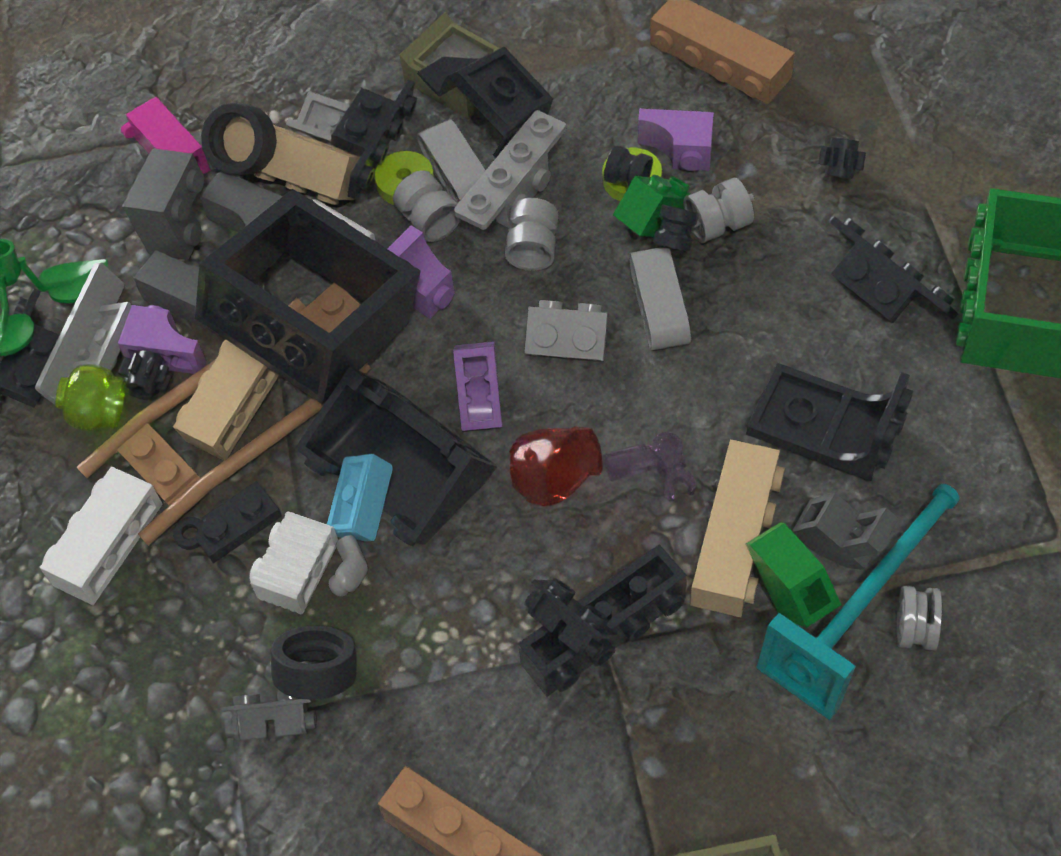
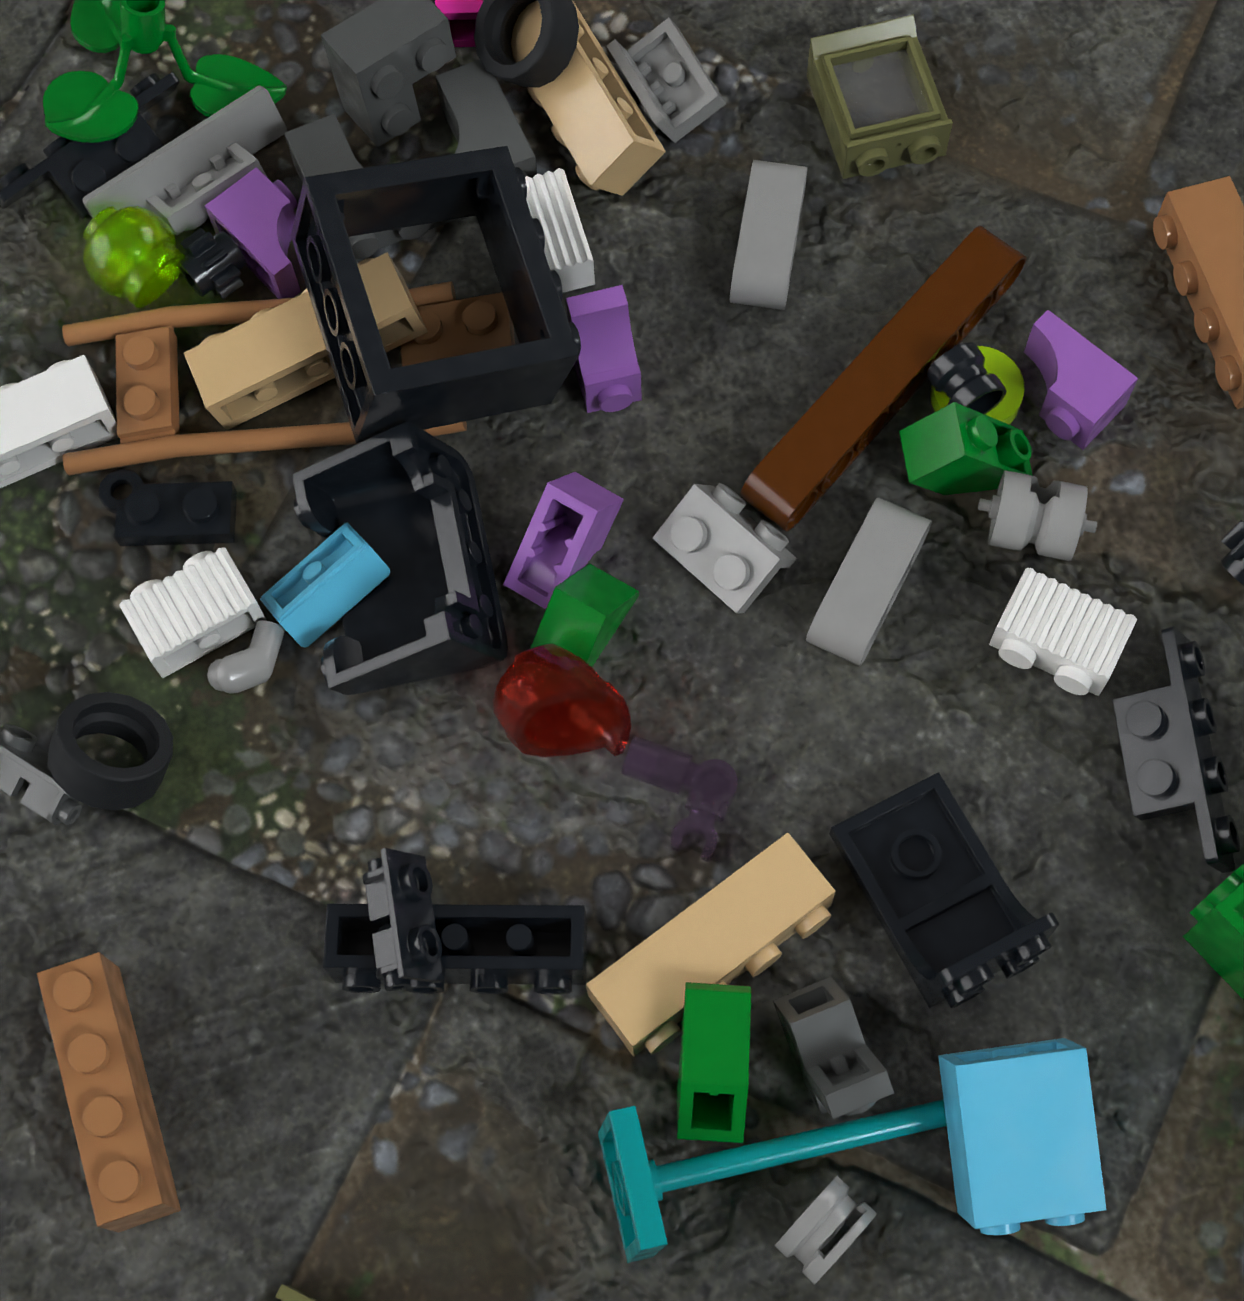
camera: 35 degrees right, 10 degrees up
(368, 130) = (696, 116): black bracket -> none
(397, 167) = (700, 229): lime piece -> none
(426, 205) = (689, 266): light grey wheel -> none
(495, 85) = (886, 180): black piece -> none
(514, 174) = (820, 295): light grey bracket -> none
(520, 413) = (585, 613): none -> green slope
(531, 234) = (778, 392): light grey wheel -> none
(579, 199) = (881, 379): none -> reddish brown beam
(675, 227) = (956, 504): black wheel -> none
(779, 257) = (1062, 633): none -> white brick
(973, 499) = (1022, 1135): none -> medium azure brick

